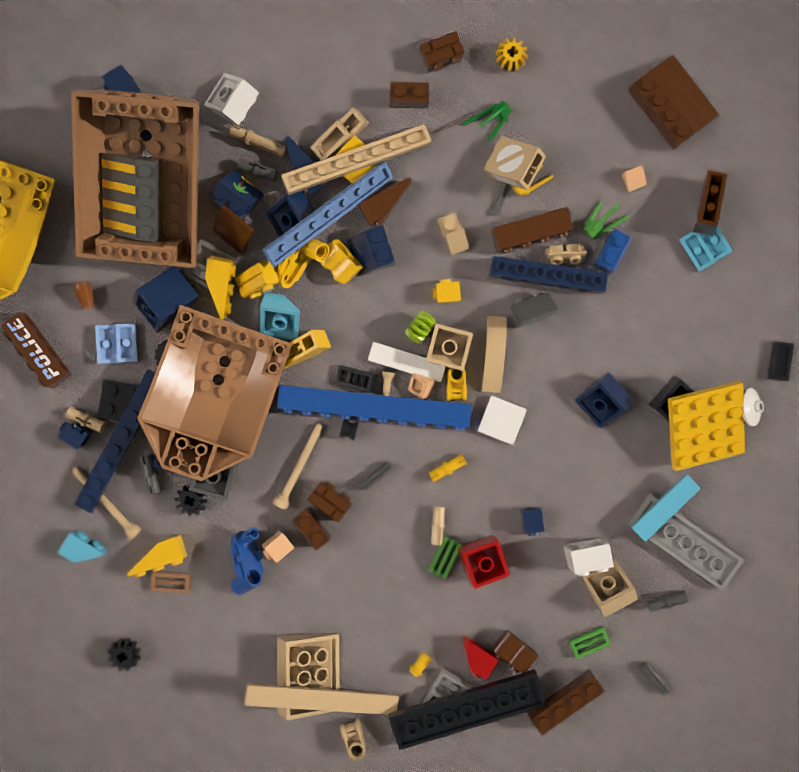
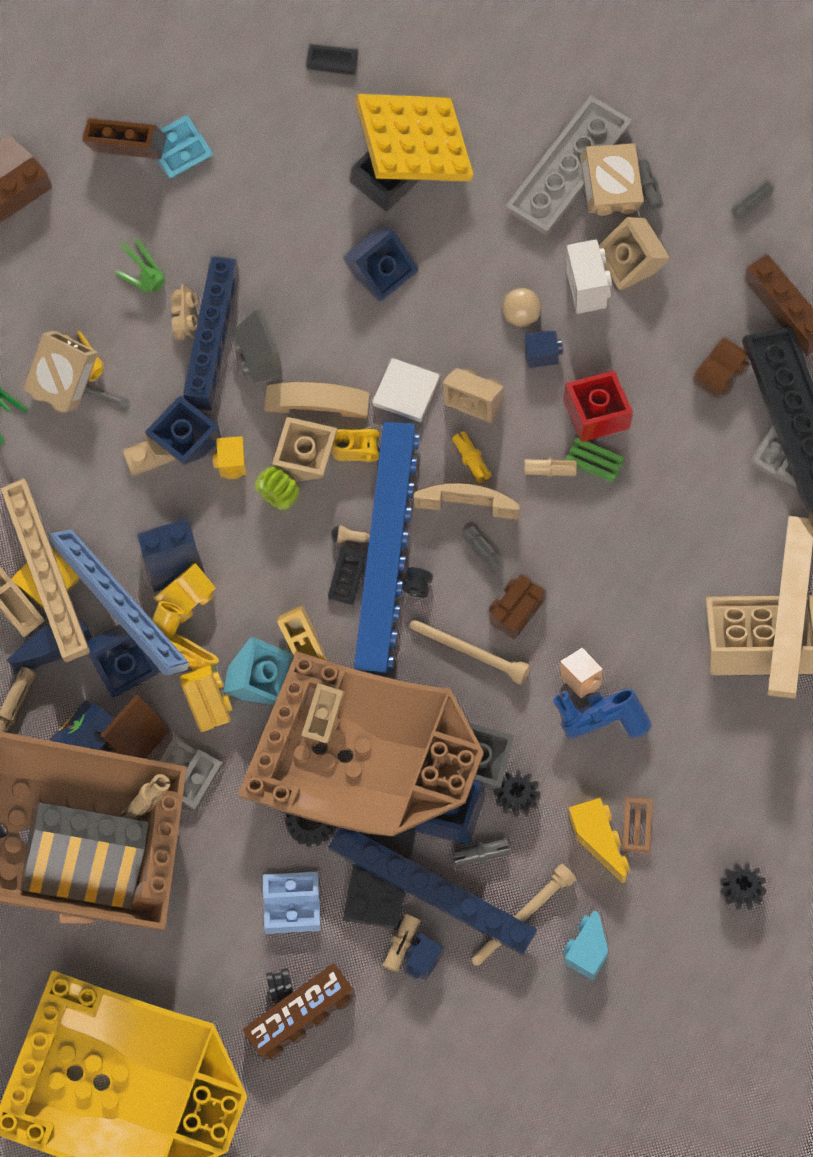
camera: 90 degrees left, 20 degrees down
(56, 336) = (279, 983): none -> black wheel
(84, 294) = (218, 945): dark orange cone -> none
(162, 297) = (229, 829): dark blue slope -> none
(167, 240) = (148, 795): none -> tan pin
(219, 280) = (203, 748): yellow slope -> none
(241, 364) = (323, 713): none -> tan slope
(256, 169) = (51, 707): dark grey pin -> none
(312, 528) = (556, 628): reddish brown brick -> none
(382, 204) = (109, 540): reddish brown slope -> none
(405, 361) = (325, 511): white tile -> none
(408, 489) = (469, 494): none -> tan slope
(420, 664) = (744, 489): yellow pin -> none
(421, 385) = (357, 491): light nougat slope -> none
(463, 256) = (184, 432): none -> dark blue slope
(480, 659) = (731, 413): red slope -> none
(495, 471) = (473, 394): none -> tan slope
(531, 230) = (150, 353): reddish brown brick -> none
(567, 505) = (521, 307): none -> tan hair
(601, 629) = (715, 297): bright green tile -> none
(612, 251) = (182, 255): blue brick -> none
(634, 178) = (87, 232): light nougat slope -> none
(665, 507) = (522, 186): medium azure tile -> none
(670, 575) = (611, 179): none -> tan brick
(752, 407) = (391, 86): white dish -> none

